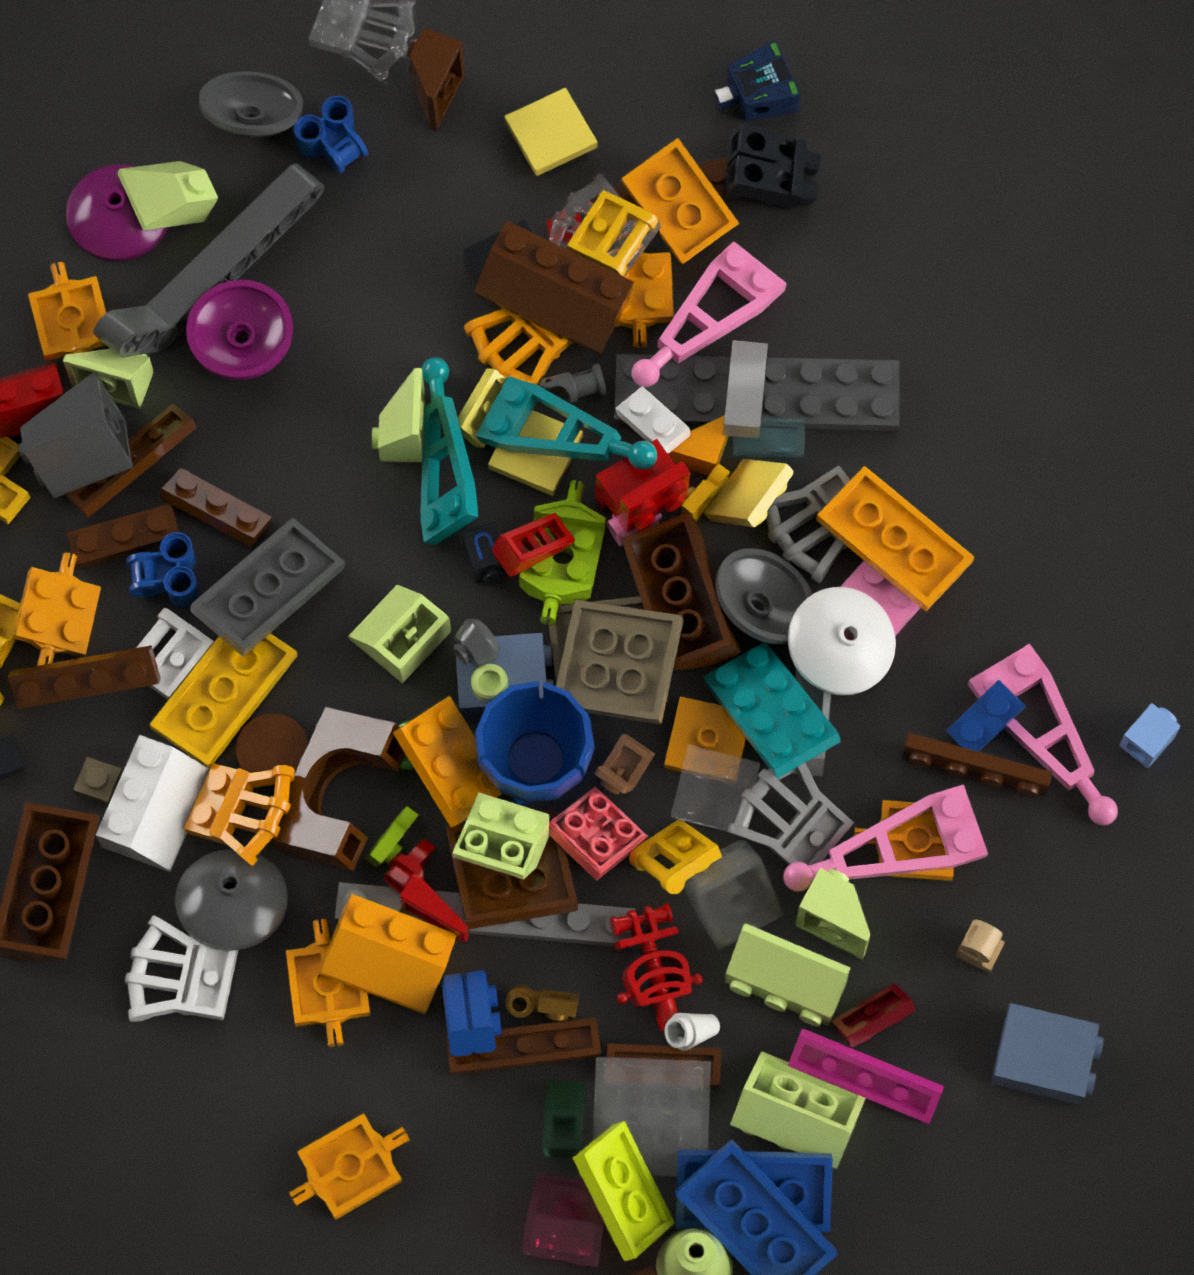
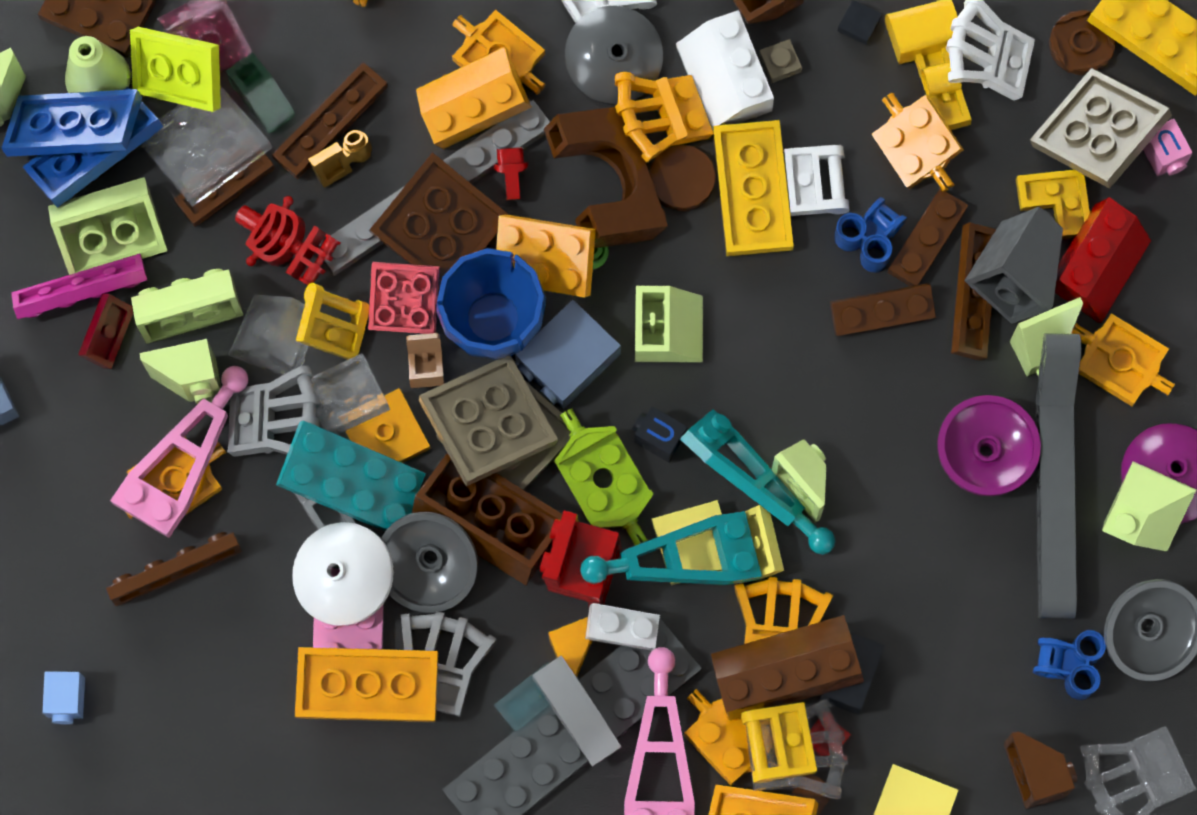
camera: 140 degrees right, 5 degrees up
(84, 677) = (852, 111): reddish brown plate -> none
(267, 586) = (788, 277): dark grey plate -> none
(387, 845) = (541, 174): lime plate -> none
(427, 905) = (468, 147): red slope -> none
(468, 1013) = (381, 104): blue brick -> none
(475, 643) = (598, 345): dark grey cone -> none
(488, 682) = (566, 331): yellowish green tile -> none
(503, 836) = (455, 221): yellowish green slope -> none
(514, 555) = (635, 431): red slope -> none
(577, 384) = (711, 613): dark grey piece -> none
(690, 1029) = (223, 215): white cone -> none
(702, 496) = (542, 601): yellow plate -> none
(749, 493) = (505, 633): light yellow tile -> none
(981, 945) = (69, 439): tan leg -> none
(986, 717) = (193, 608): blue plate -> none
(1020, 673) = (202, 657): bright pink plate -> none

